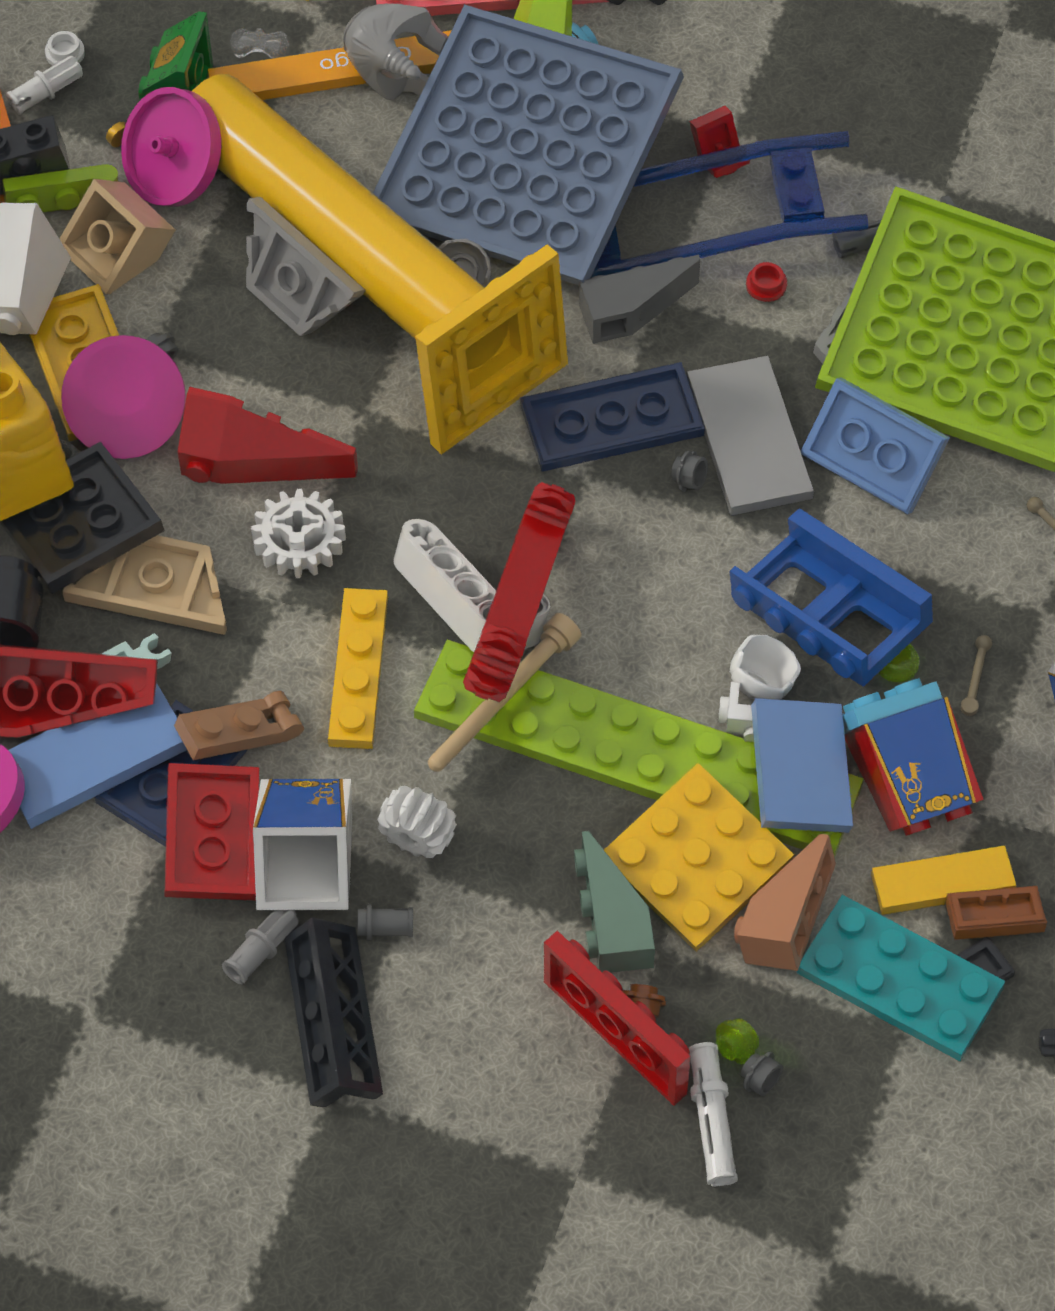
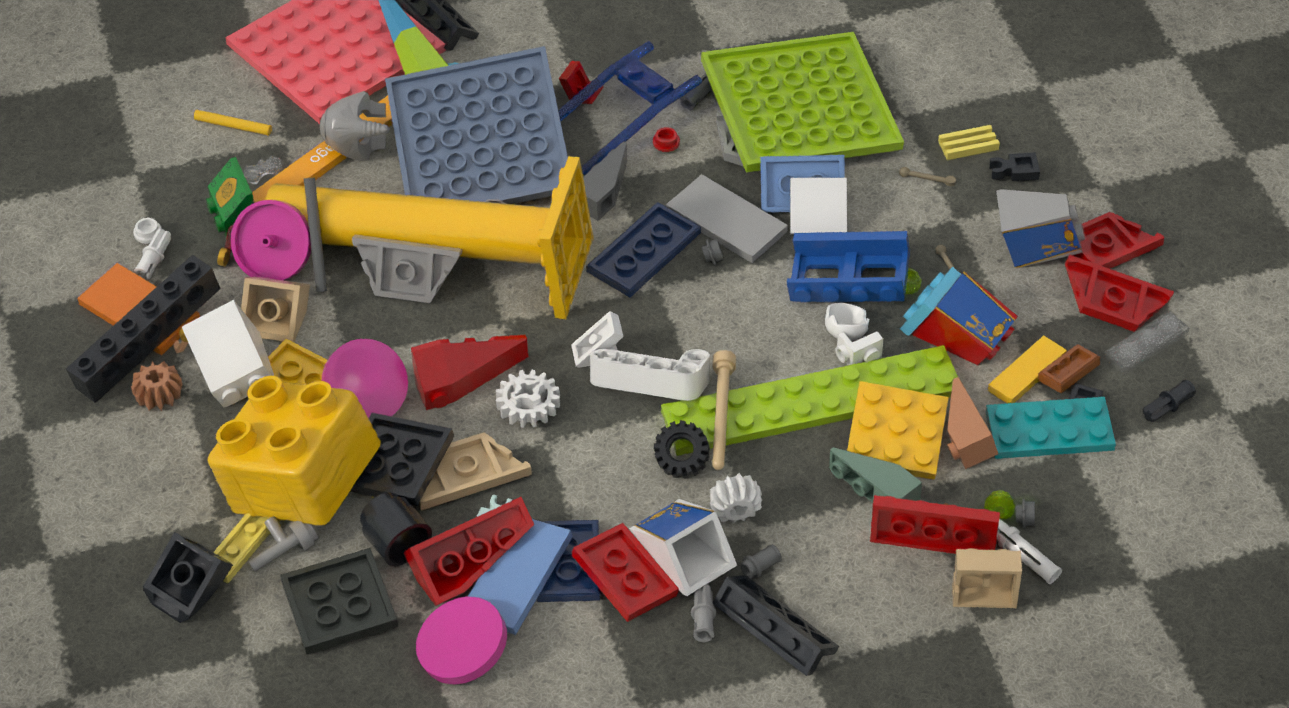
camera: 35 degrees left, 10 degrees down
(56, 189) = (223, 293): lime plate -> none
(218, 168) = (315, 234): none -> dark grey bar
(238, 726) = (589, 510): medium nougat plate -> none
(358, 668) = (623, 448): yellow plate -> none
(388, 708) = (694, 462): none -> black tyre
(445, 507) = (600, 336): none -> white slope
(519, 593) = (713, 377): red arm -> none
(618, 1127) = (986, 578): none -> tan piece
(801, 765) = (913, 351): medium blue tile -> none
(866, 489) = (818, 205): none -> white tile

